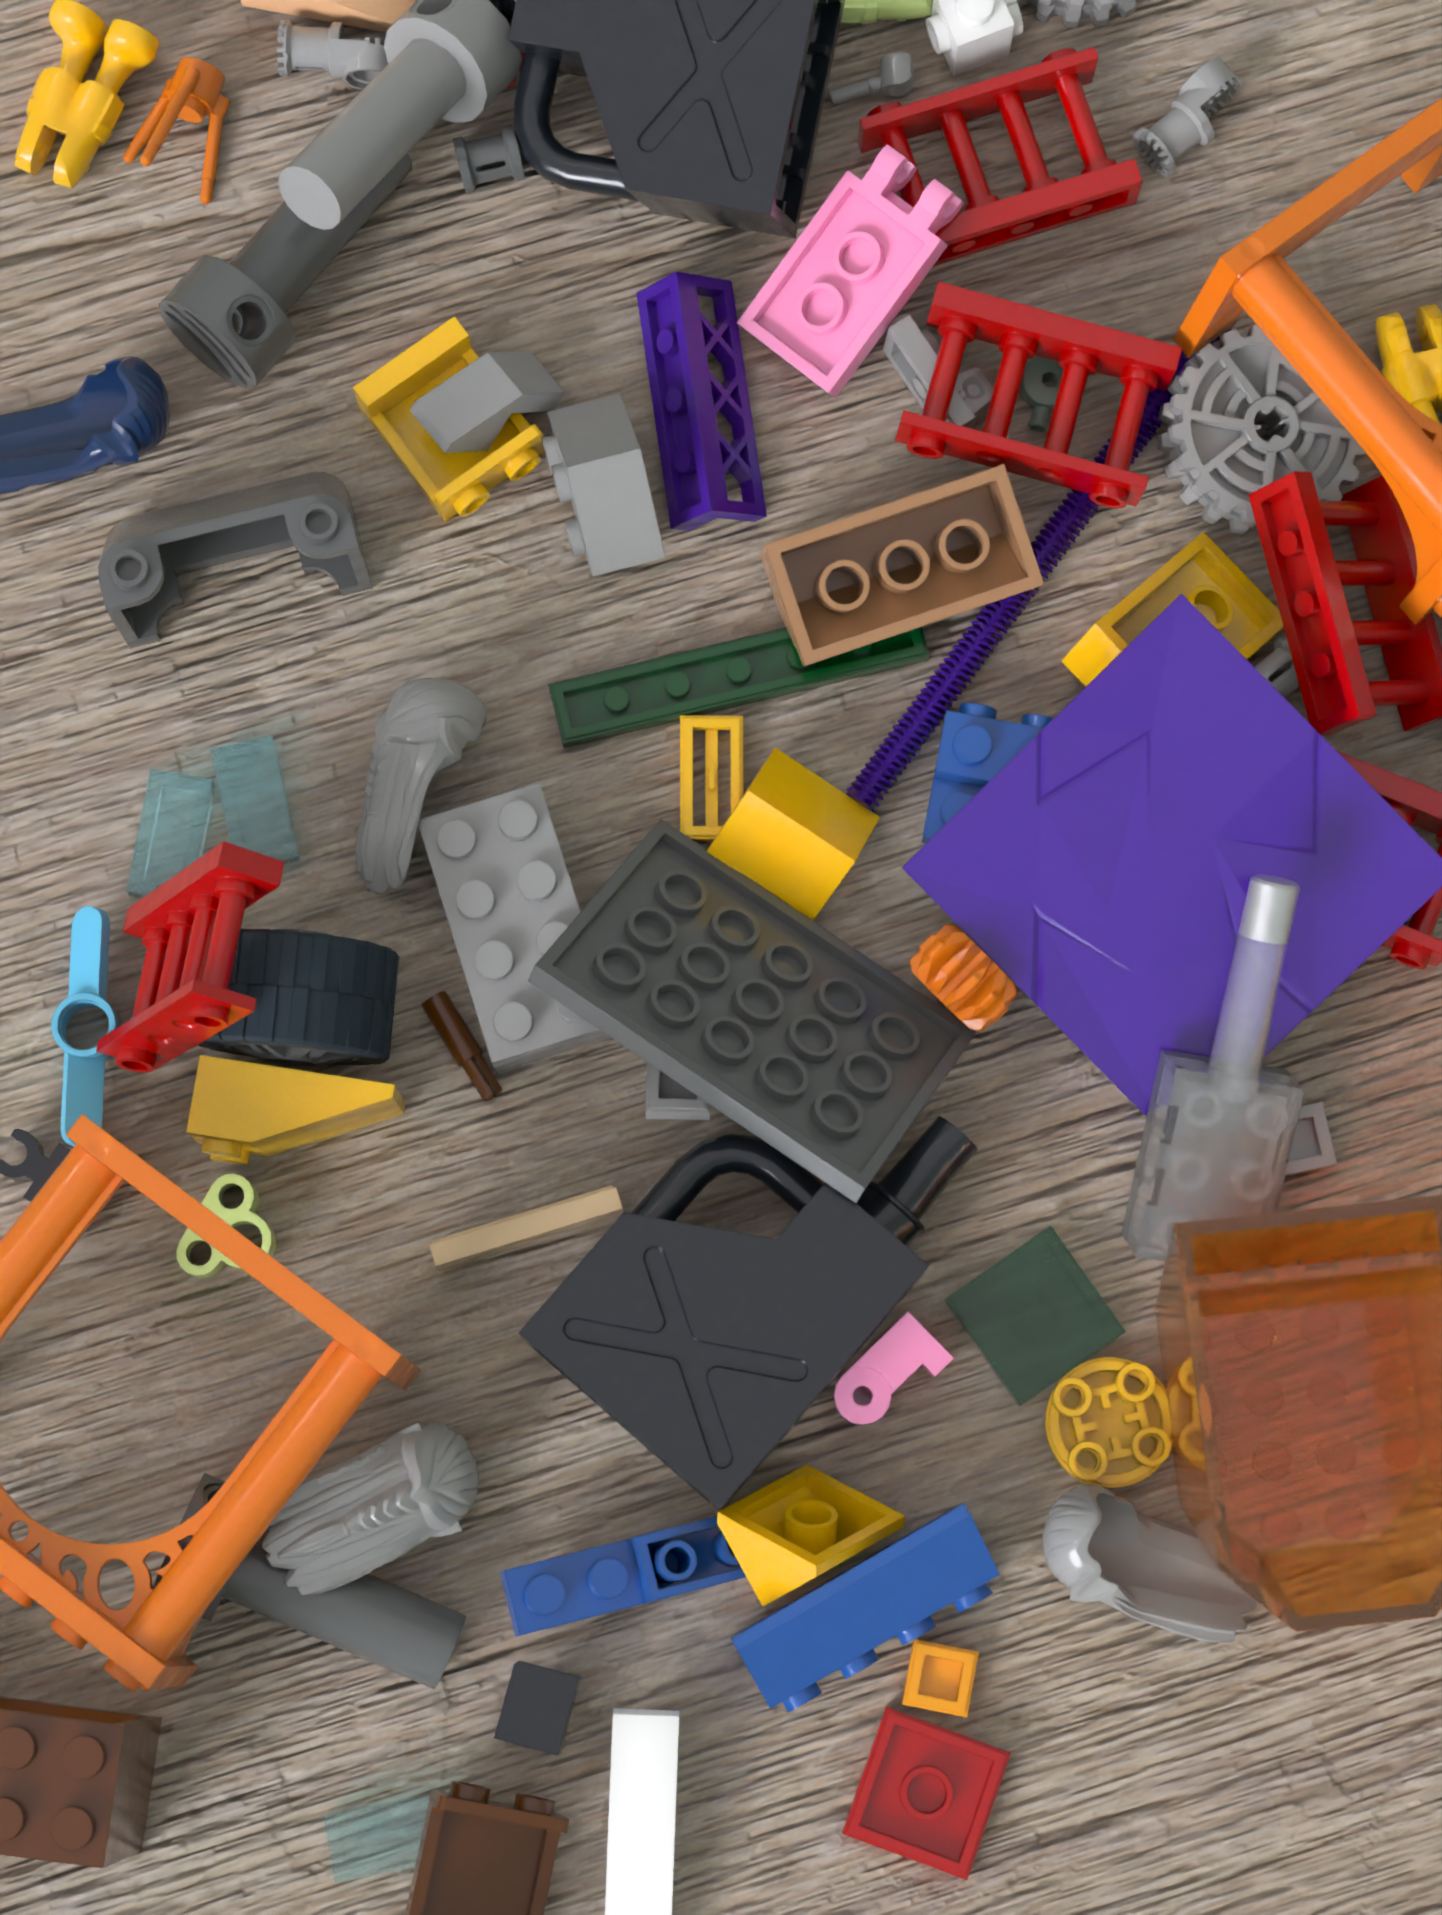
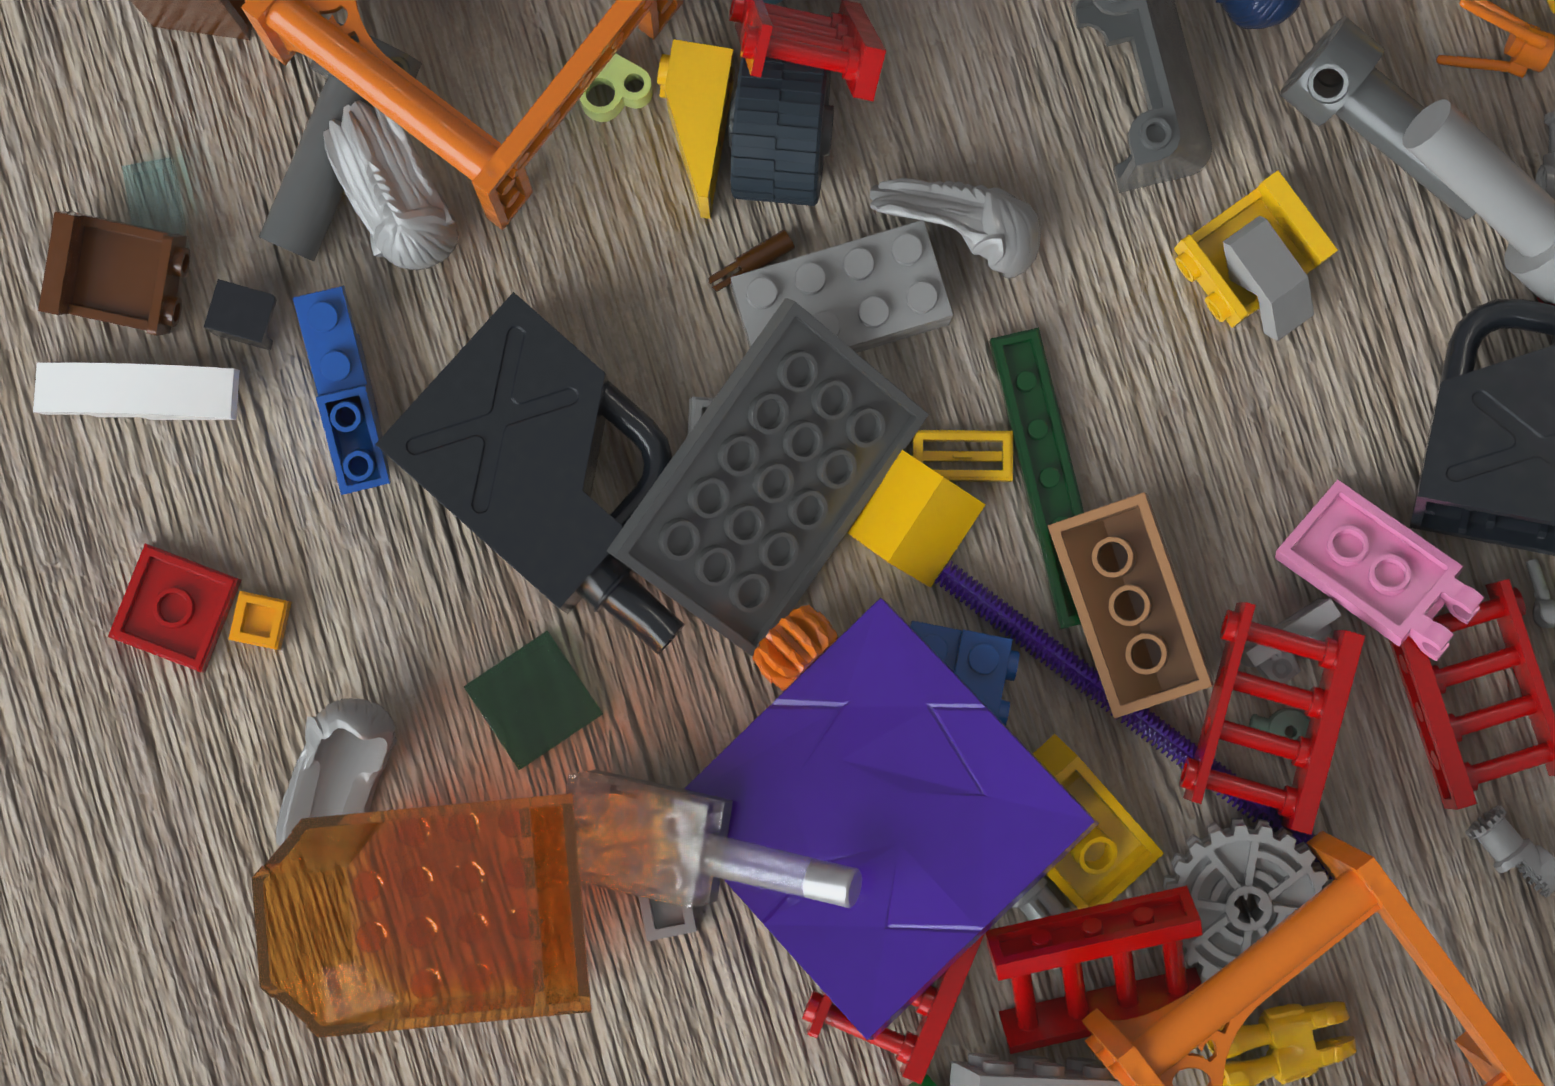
camera: 90 degrees right, 5 degrees up
(169, 829) = (922, 37): clear light blue tile -> none
(256, 798) = (944, 102): clear light blue tile -> none
(488, 158) = (1473, 280): dark grey bush -> none
(526, 1228) = (606, 307): tan tile -> none
(605, 477) = (1199, 368): light grey brick -> none
(689, 397) = (1277, 434): dark purple fence -> none
(801, 1529) = (366, 513): yellow slope -> none
(865, 1607) = (309, 560): blue slope -> none
(867, 1386) = (481, 569): bright pink leg -> none
(1109, 1422) = (449, 755): yellow tile -> none

